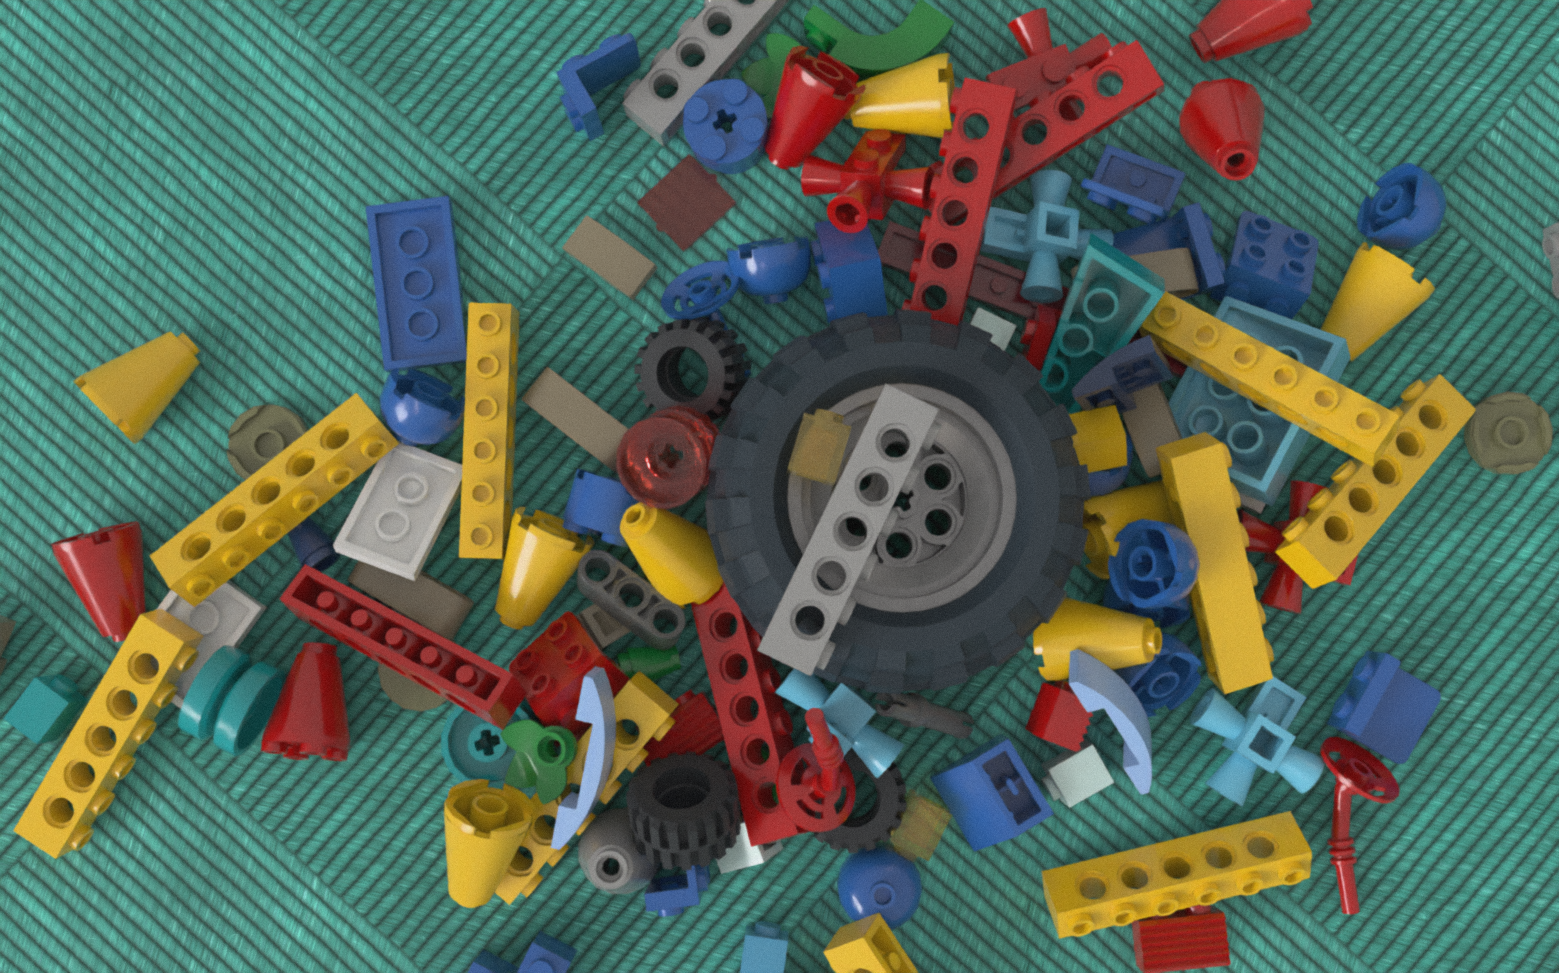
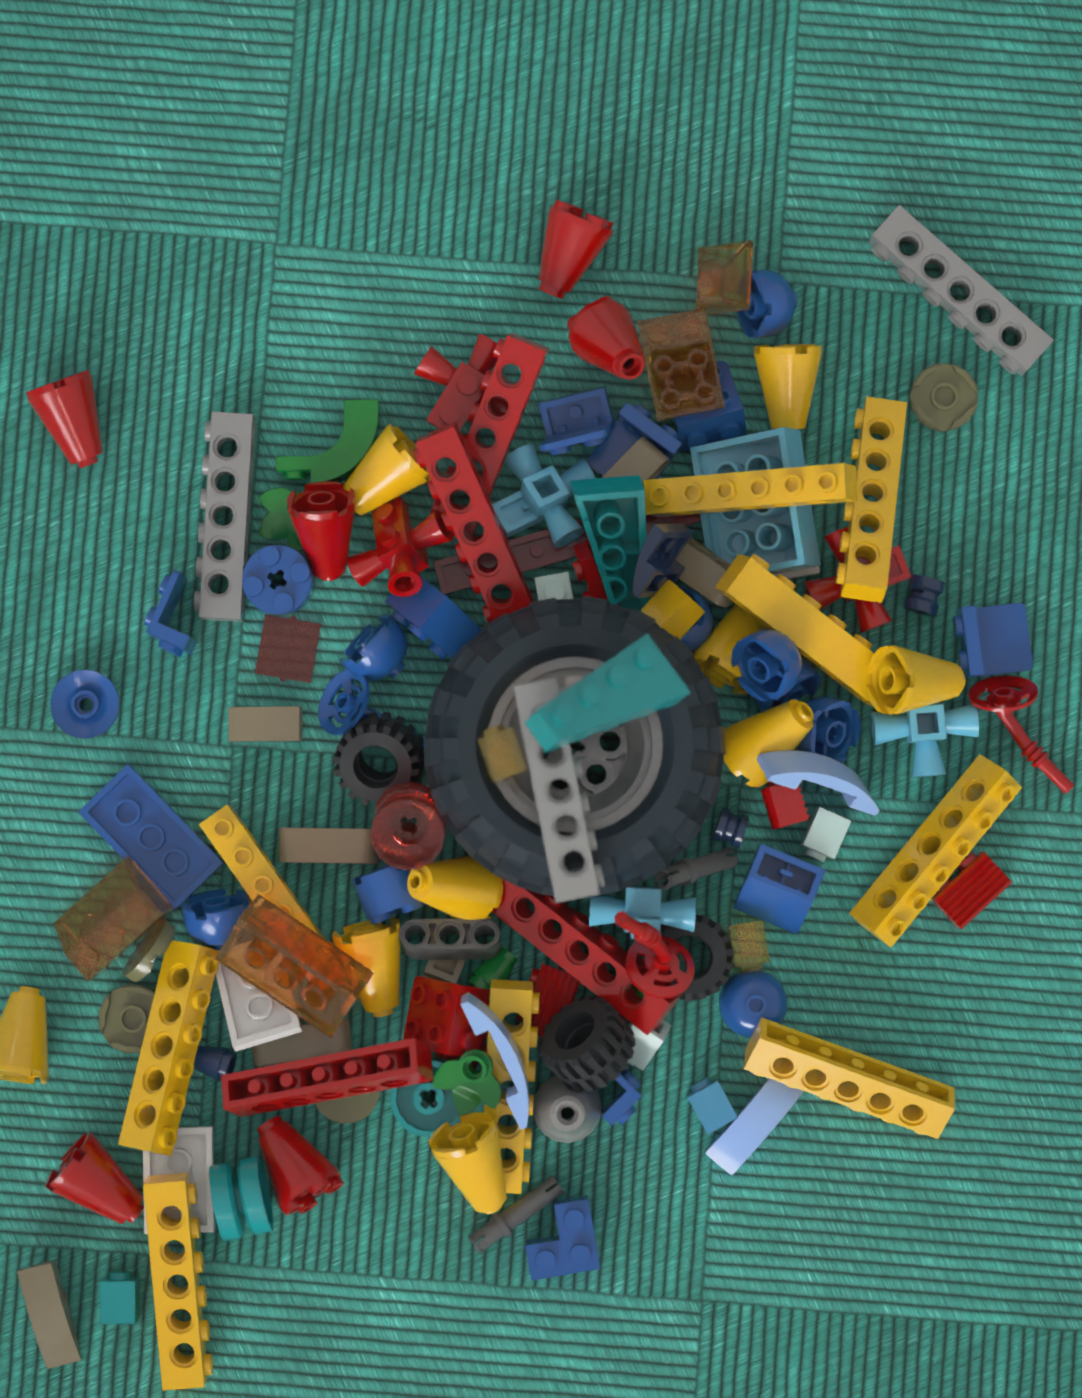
camera: 35 degrees left, 0 degrees up
(317, 333) = (110, 918): none -> clear orange slope
(328, 390) = (150, 947): none -> olive tile
(438, 95) = (67, 701): none -> blue dish
(453, 509) = (294, 965): none -> clear orange slope
(491, 918) = (515, 1214): none -> dark grey pin
(987, 697) = (730, 827): none -> dark blue wheel
(991, 472) = (618, 691): none -> teal wedge
(1280, 206) = (681, 364): none -> clear orange slope
(1281, 686) = (911, 680): none -> yellow cone
(1348, 612) = (924, 595): none -> dark blue wheel
(1382, 155) = (724, 277): none -> clear orange slope

